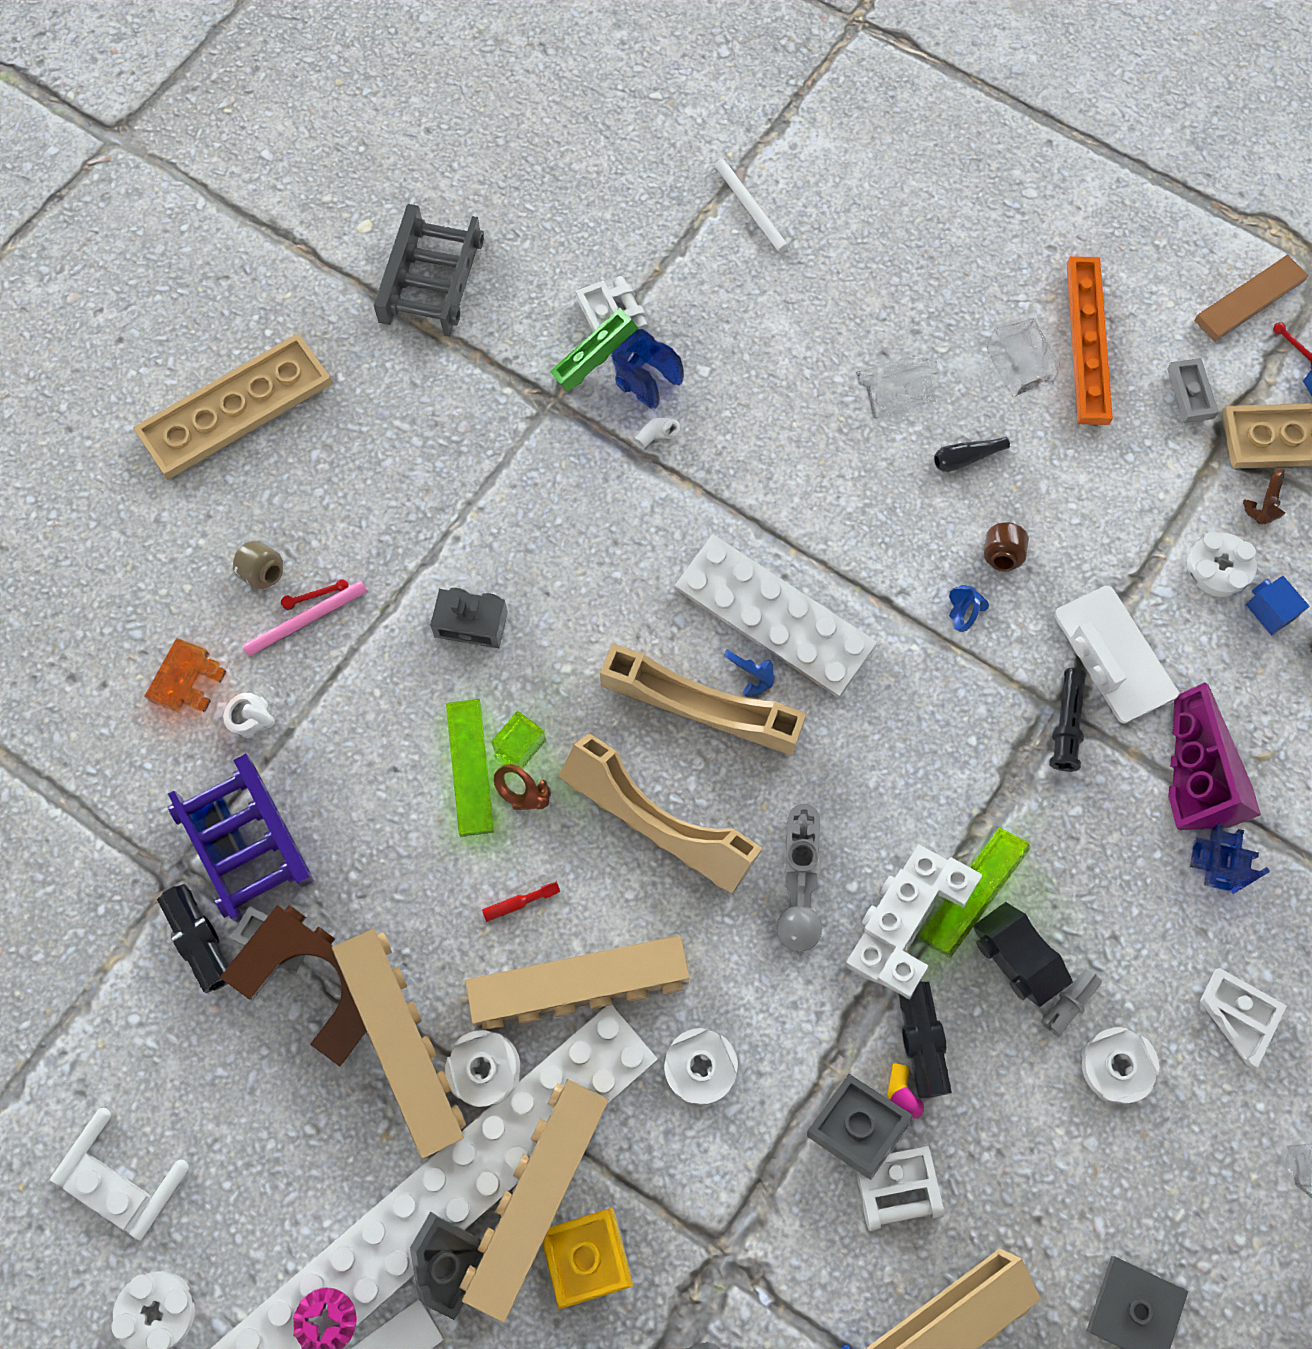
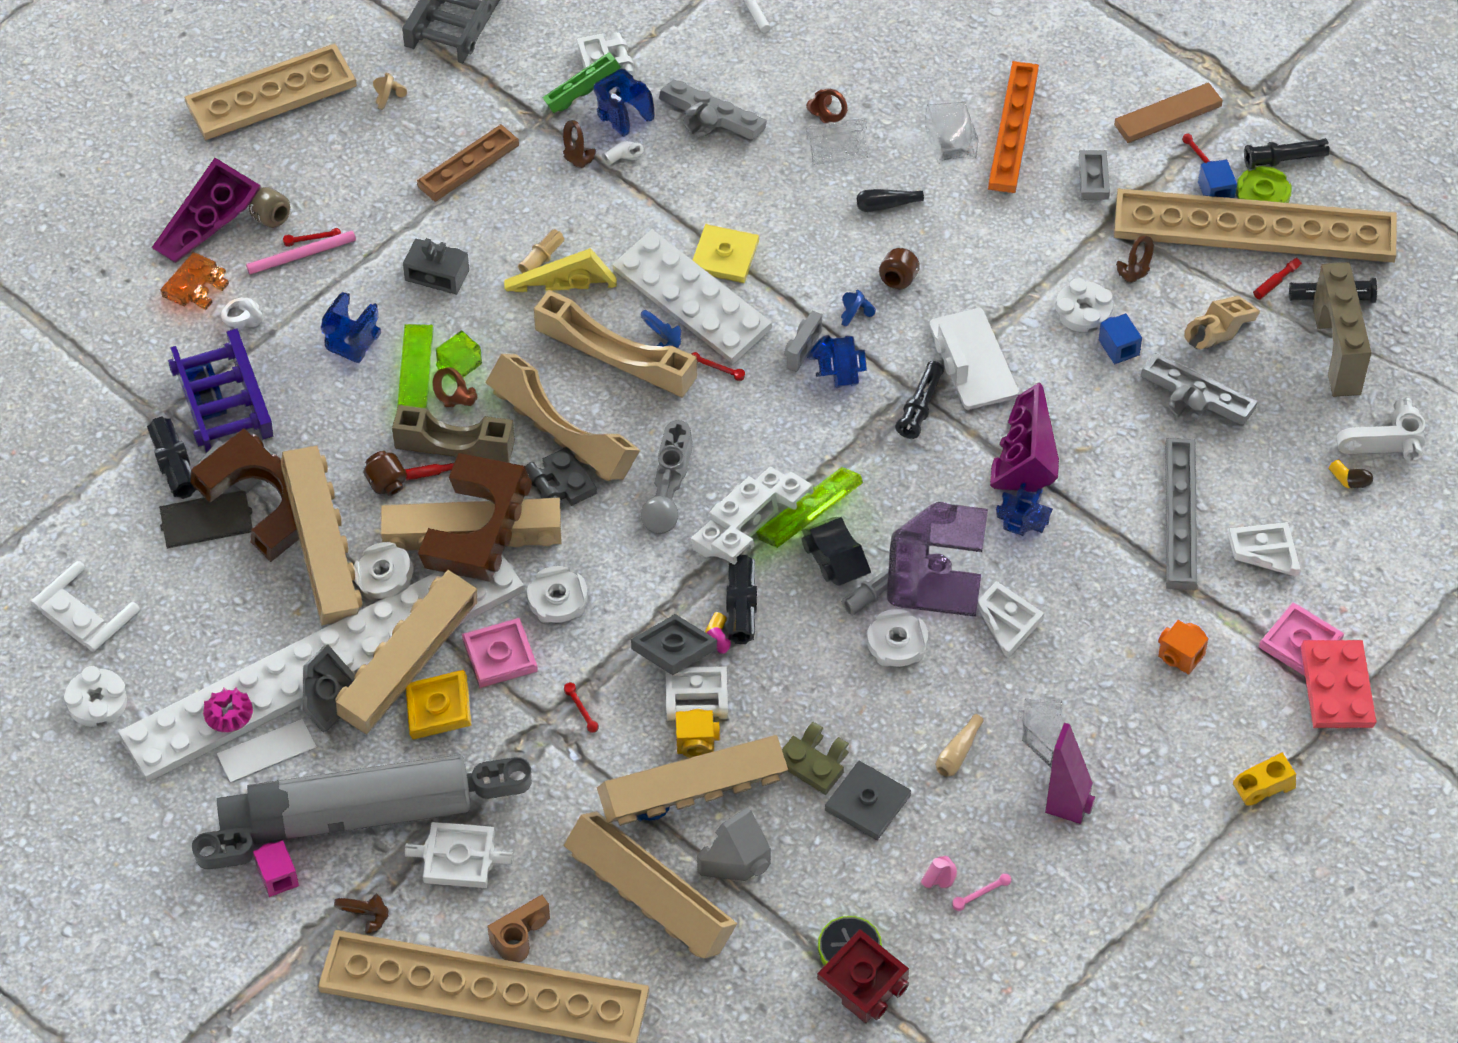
camera: 10 degrees right, 15 degrees down
(187, 574) = (210, 205): none -> magenta wedge
(239, 1024) = (205, 521): none -> clear smoke piece
(365, 382) = (383, 87): none -> tan piece
(371, 715) = (338, 326): none -> clear blue piece
(460, 923) = (385, 473): none -> reddish brown head
(479, 469) = (467, 163): none -> medium nougat tile
(562, 860) = (421, 432): none -> dark tan arch
(588, 581) = (542, 251): none -> tan axle
(600, 1040) = (480, 552): none -> reddish brown arch
(601, 442) = (572, 153): none -> reddish brown piece
(621, 609) = (564, 274): none -> light yellow wing
(645, 1160) = (499, 652): none -> bright pink tile
(679, 887) = (568, 475): none -> dark grey plate
(745, 366) = (709, 112): none -> light grey plate
(780, 1253) = (570, 690): none -> red hinge
(800, 549) = (726, 252): none -> light yellow plate
(849, 712) = (739, 374): none -> red hinge
(864, 341) = (818, 107): none -> copper piece
(912, 1251) = (696, 732): none -> yellow brick
(913, 673) = (807, 335): none -> light grey plate
(957, 673) = (843, 358): none -> clear blue piece
(1057, 1270) = (811, 765): none -> olive plate
(1173, 970) = (927, 579): none -> clear purple windscreen
(1227, 1218) = (954, 753): none -> tan piece

